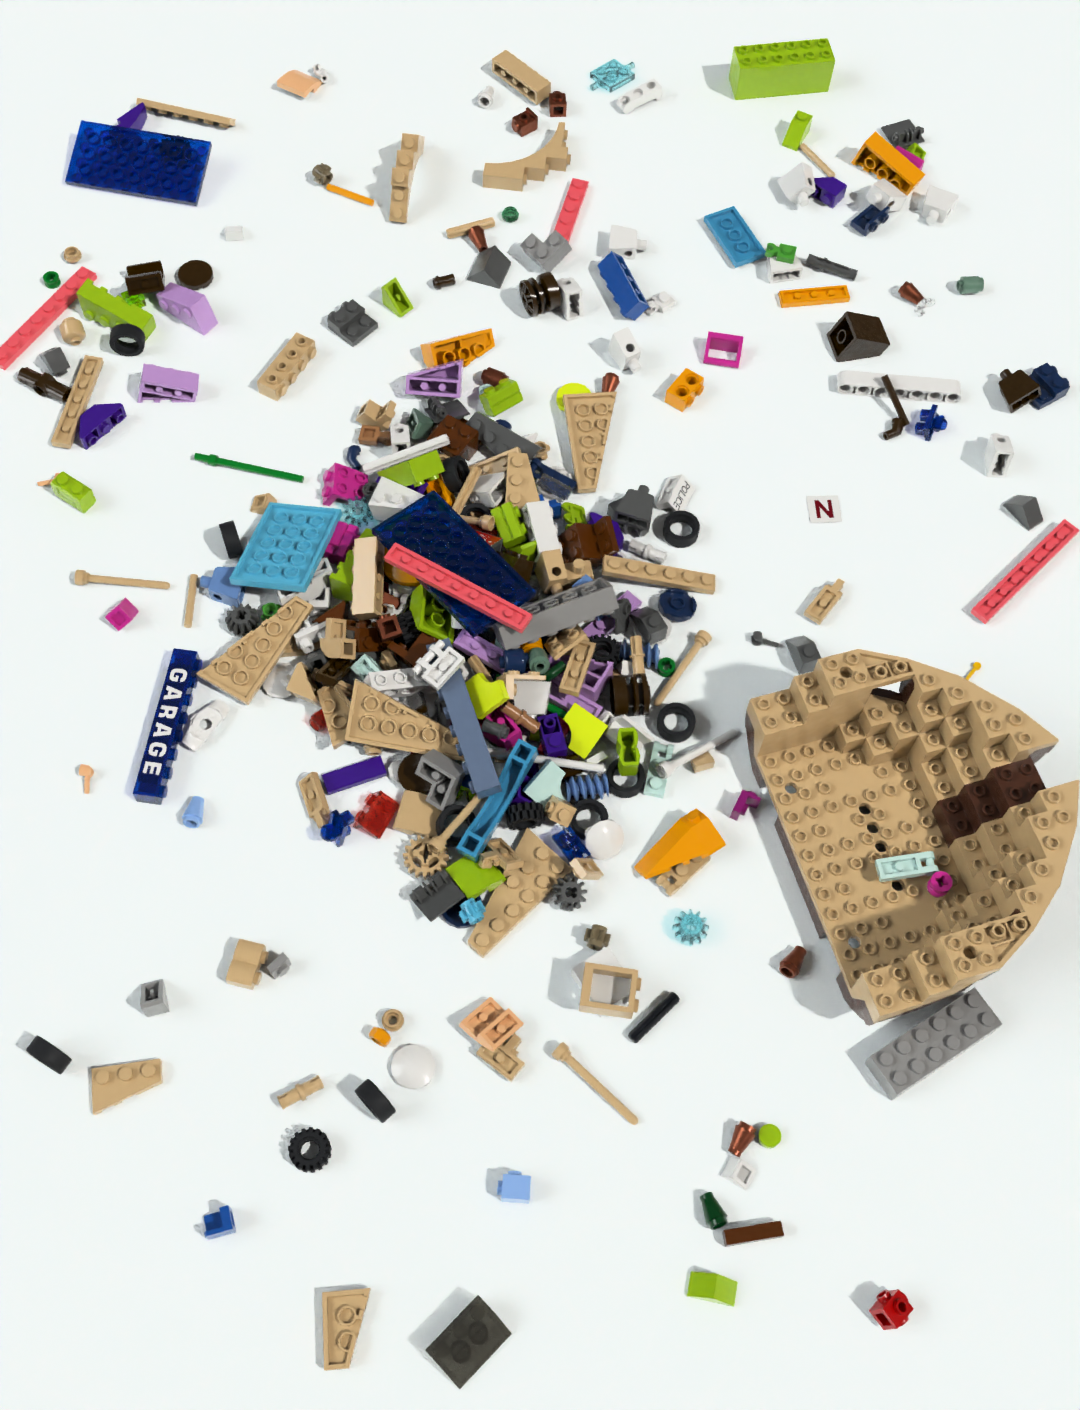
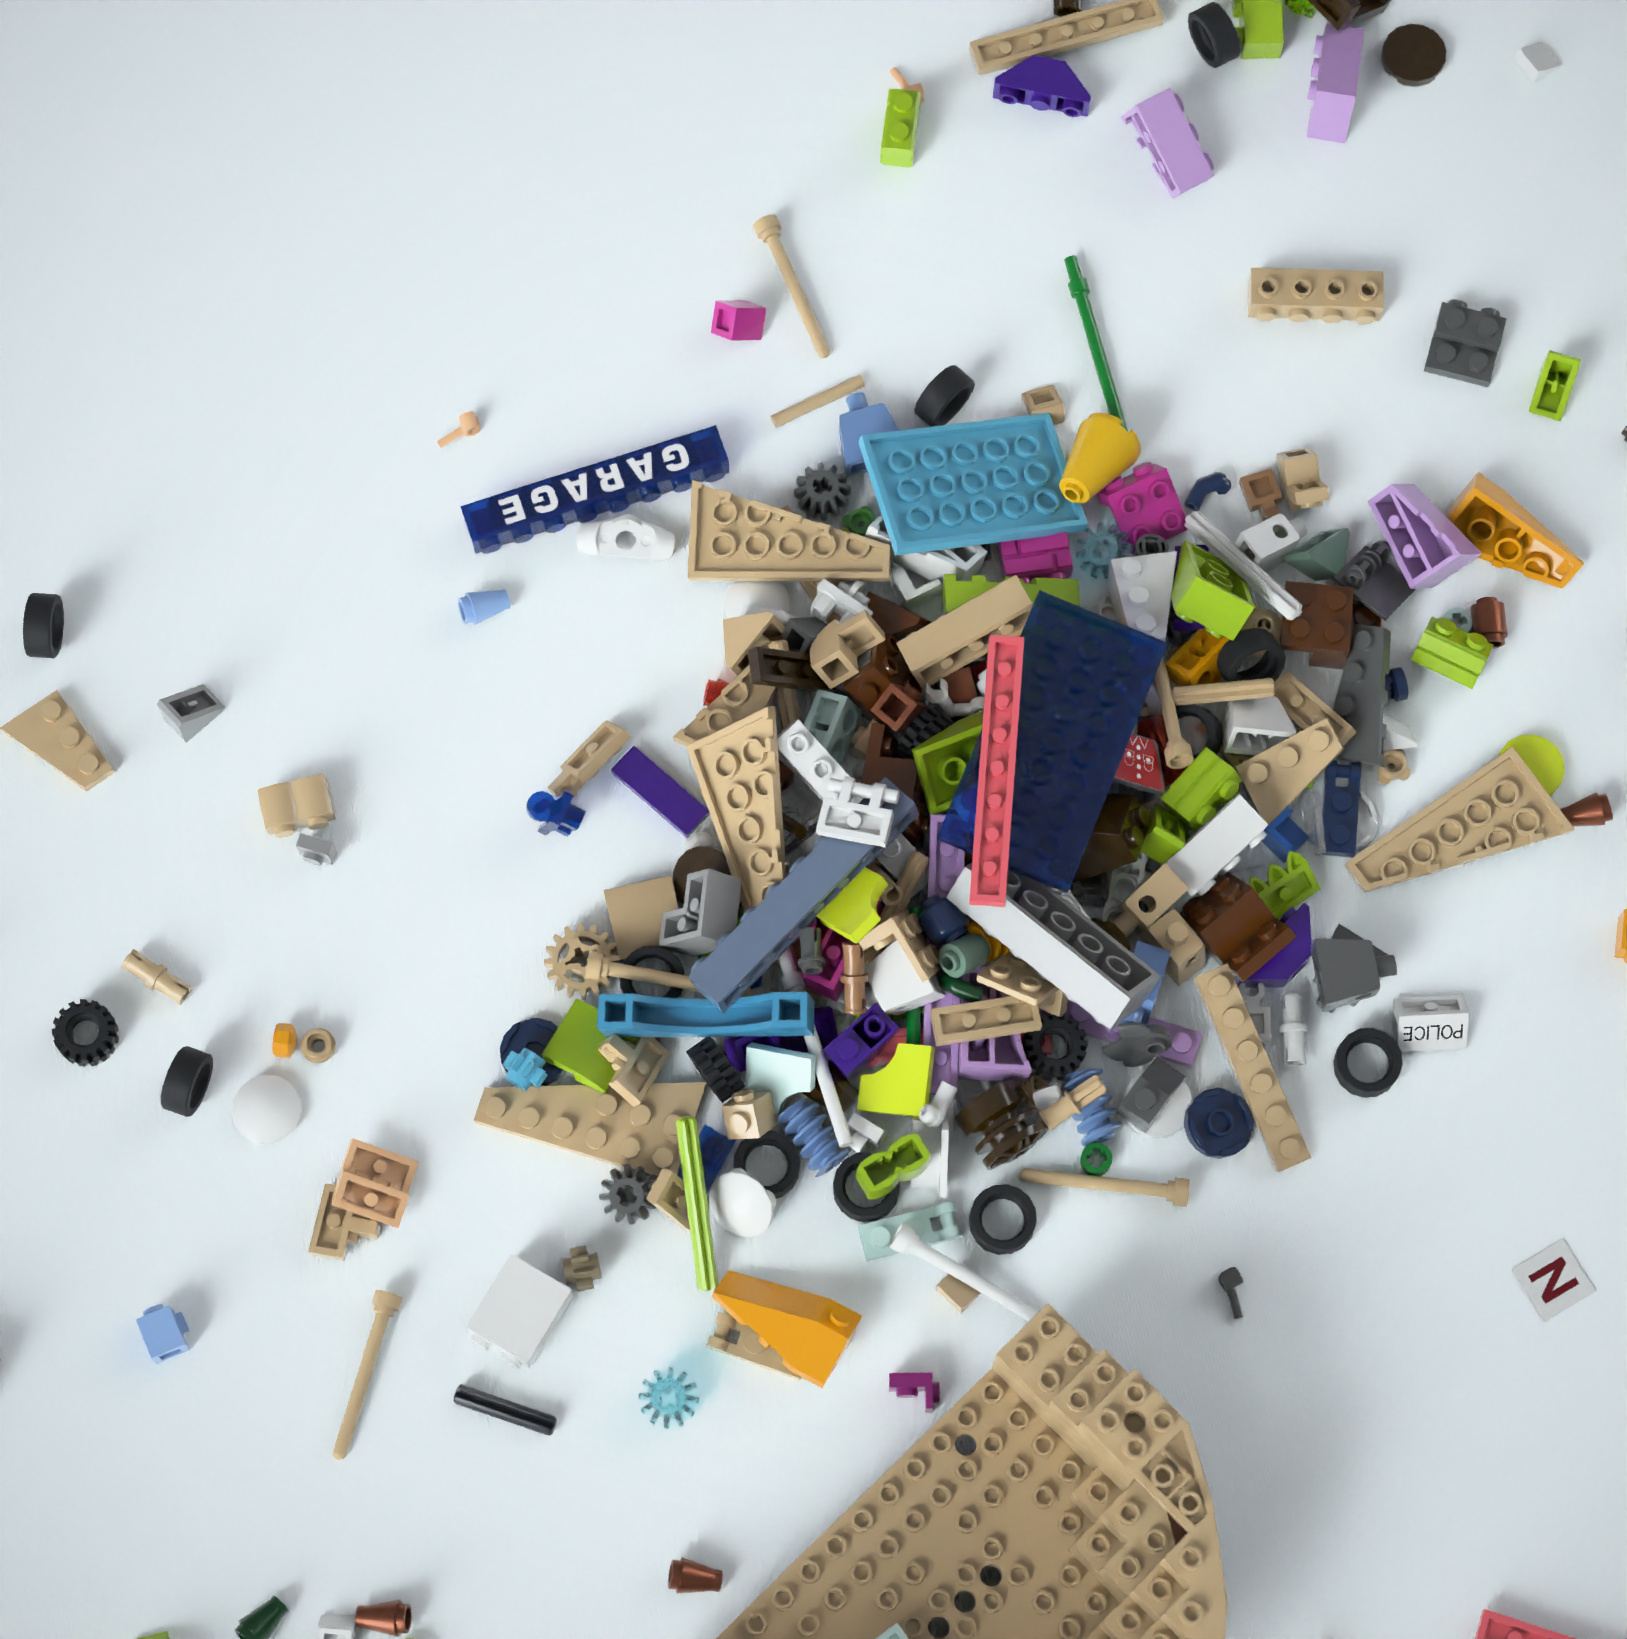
camera: 65 degrees right, 10 degrees up
(308, 486) = (1098, 456): none -> yellow cone
(376, 814) = (612, 855): clear red bracket -> none
(436, 896) = (527, 1008): dark grey hinge -> none
(594, 857) = (697, 1203): none -> lime axle
(608, 717) = (935, 1113): none -> white arm
(609, 1009) = (486, 1287): tan window -> none
(803, 653) = (1241, 1363): dark grey slope -> none
(824, 602) = (1361, 1358): tan hinge -> none

